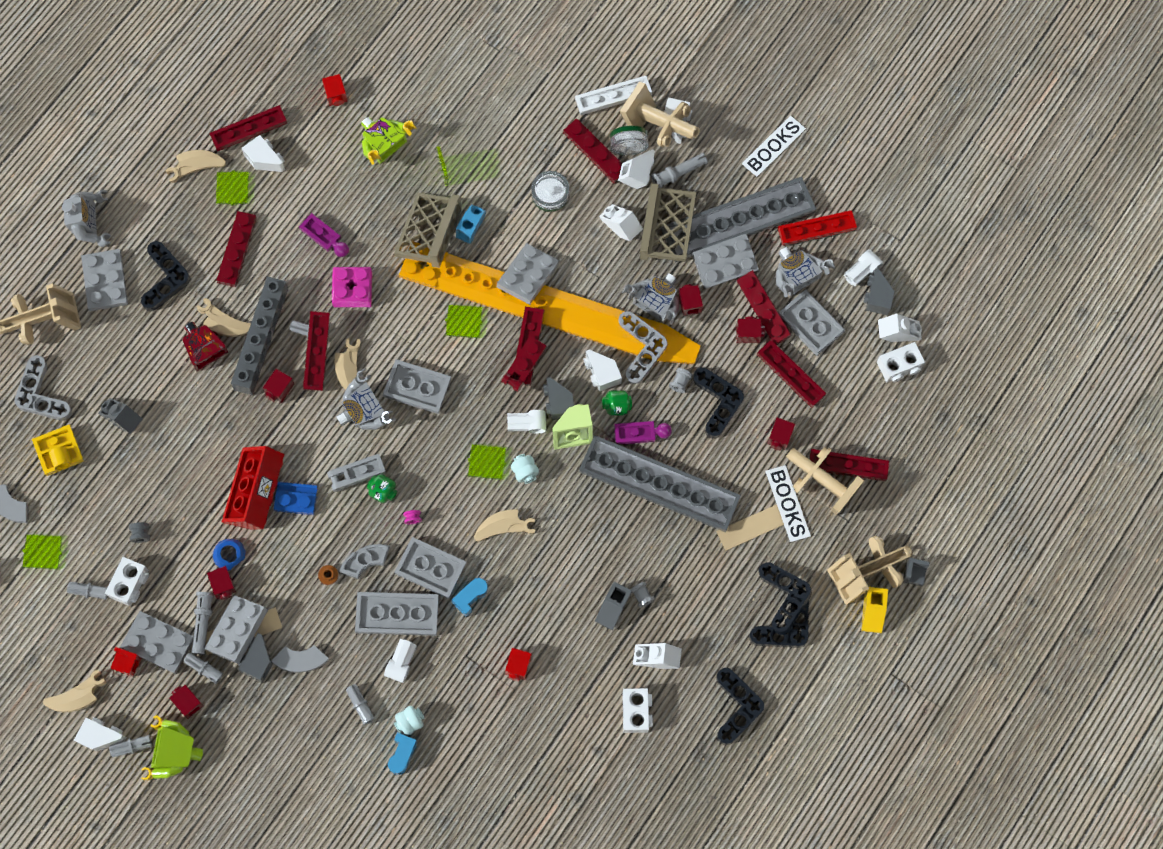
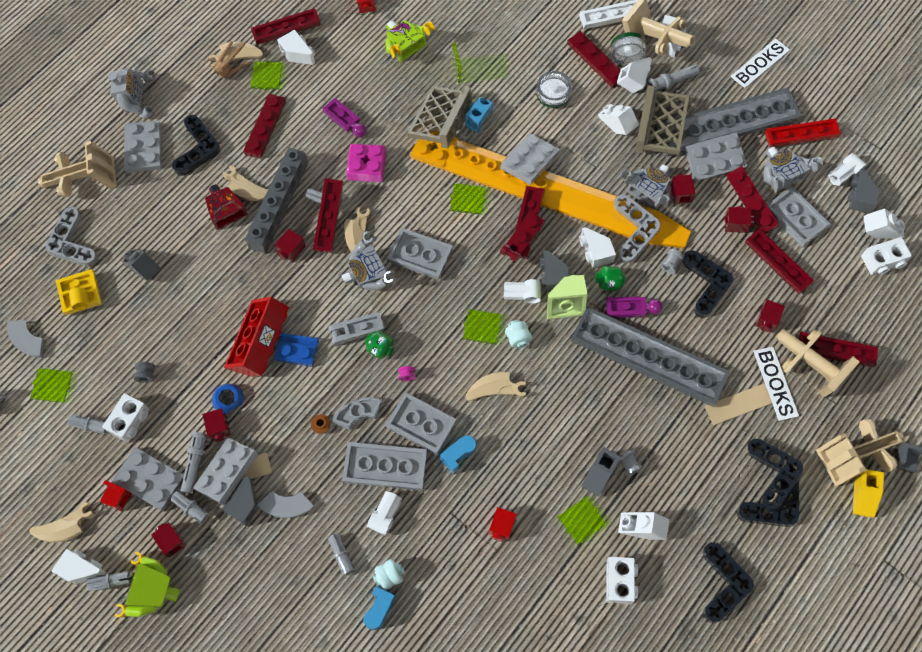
camera: 10 degrees right, 5 degrees down
(184, 183) = (223, 68): none -> medium nougat plant
(596, 655) = (581, 520): none -> clear neon green piece

